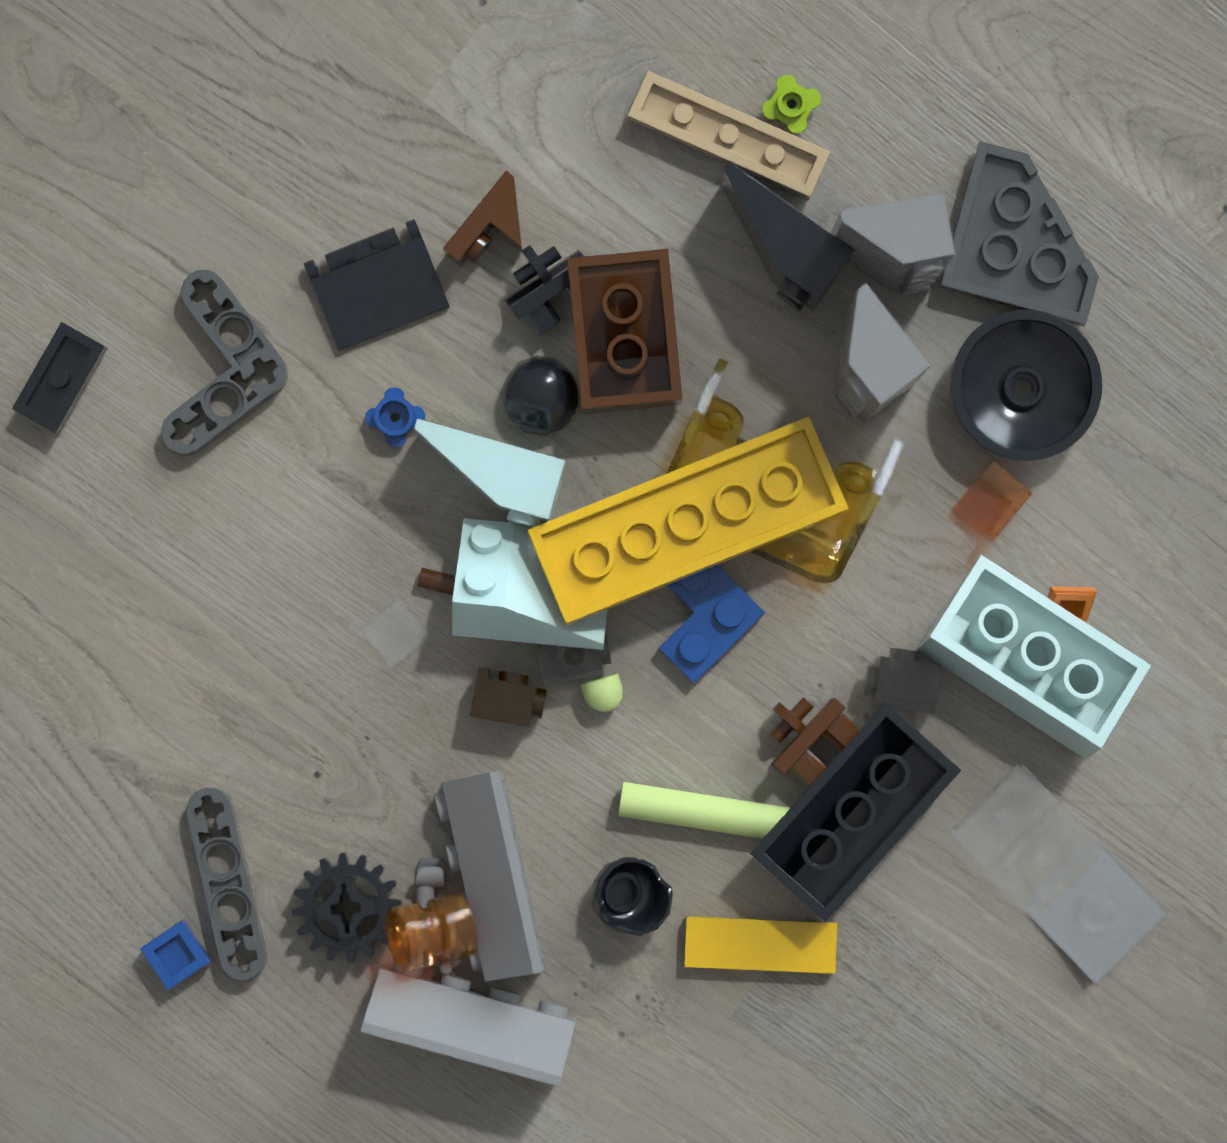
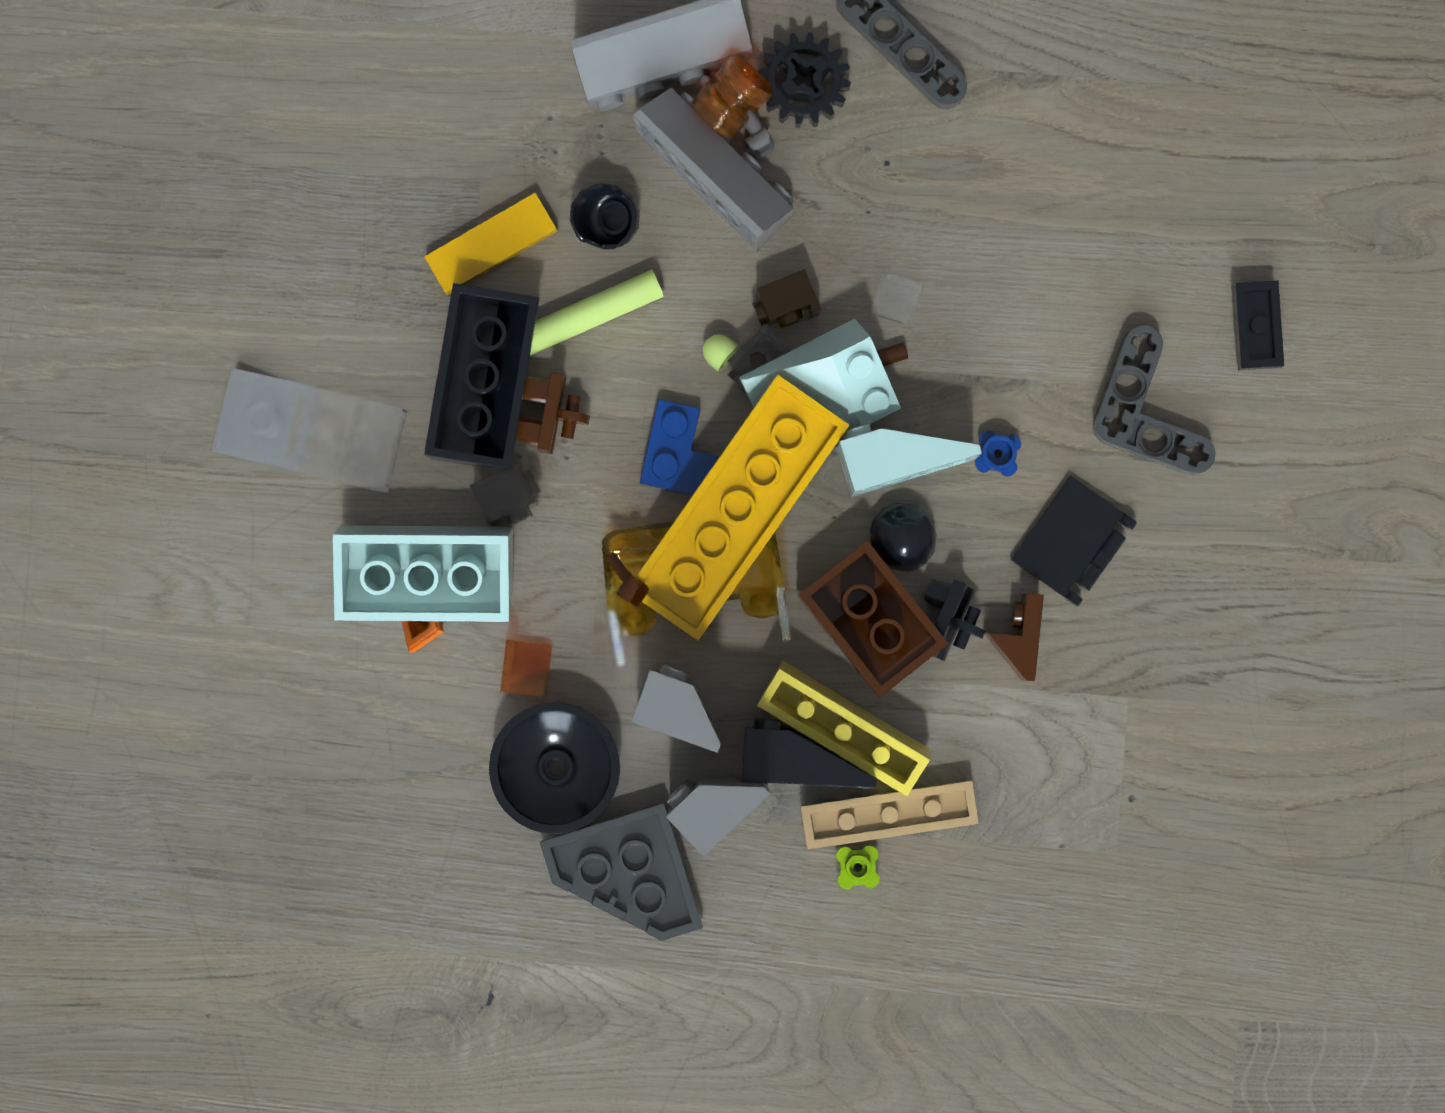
camera: 150 degrees right, 0 degrees up
(719, 244) = (844, 728): none -> light yellow brick
(842, 504) = (632, 588): none -> reddish brown hand

